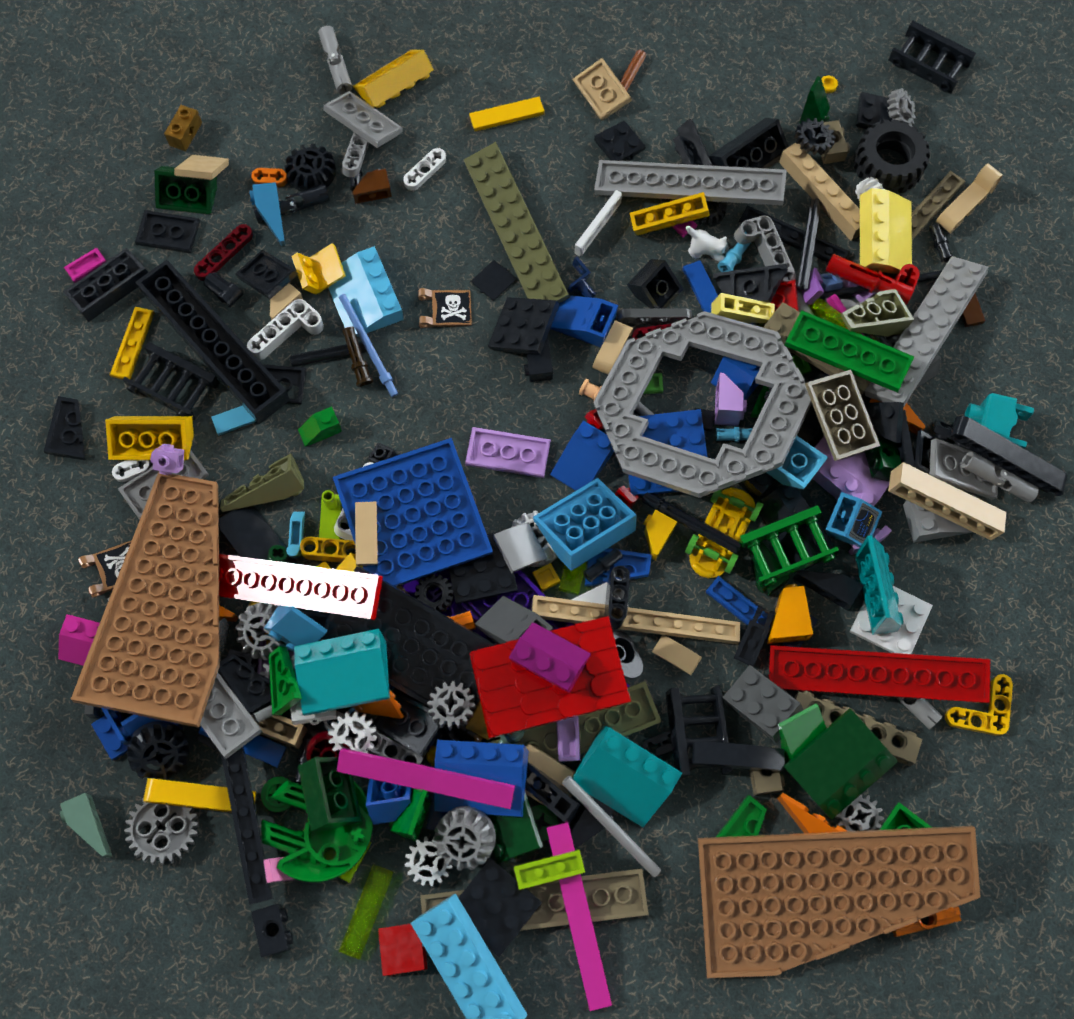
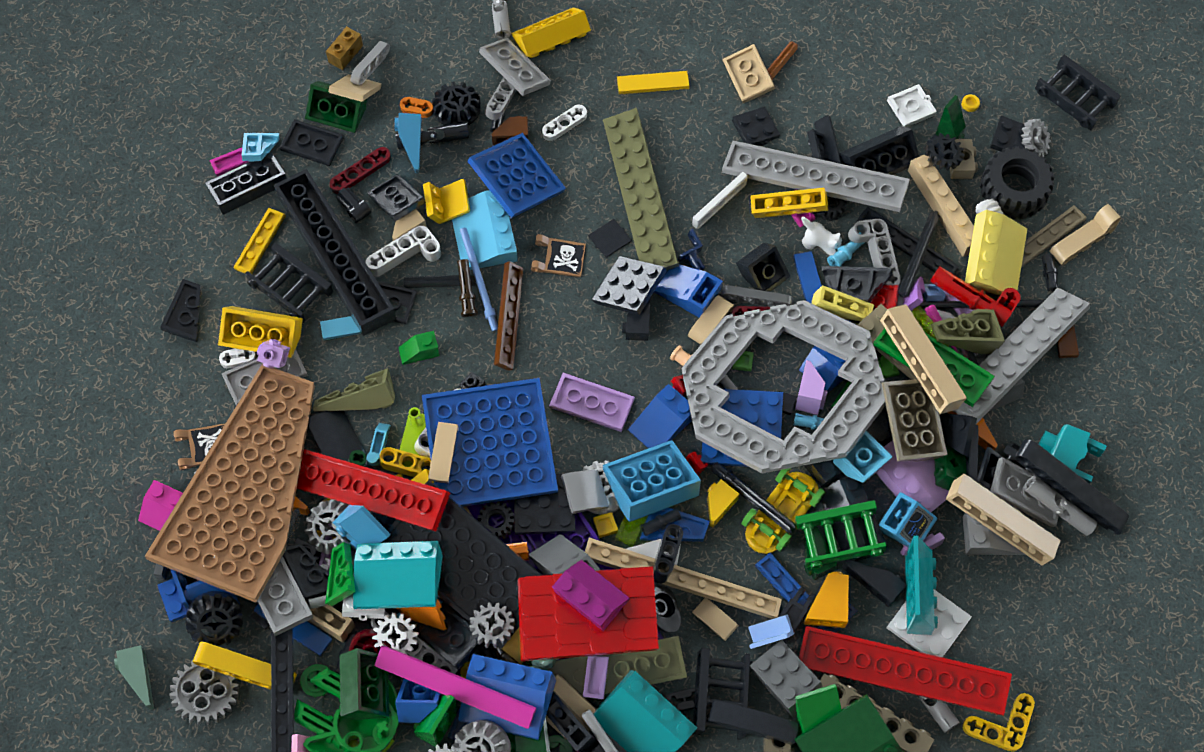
camera: 10 degrees right, 5 degrees down
(111, 243) = (258, 145): none -> medium azure wing
(212, 139) = (370, 63): none -> light grey beam
(386, 230) = (516, 175): none -> blue plate
(405, 378) = (508, 316): none -> reddish brown plate
(736, 658) = (770, 631): none -> light blue panel
(771, 96) = (912, 106): none -> white plate
(840, 351) = (923, 359): none -> tan brick

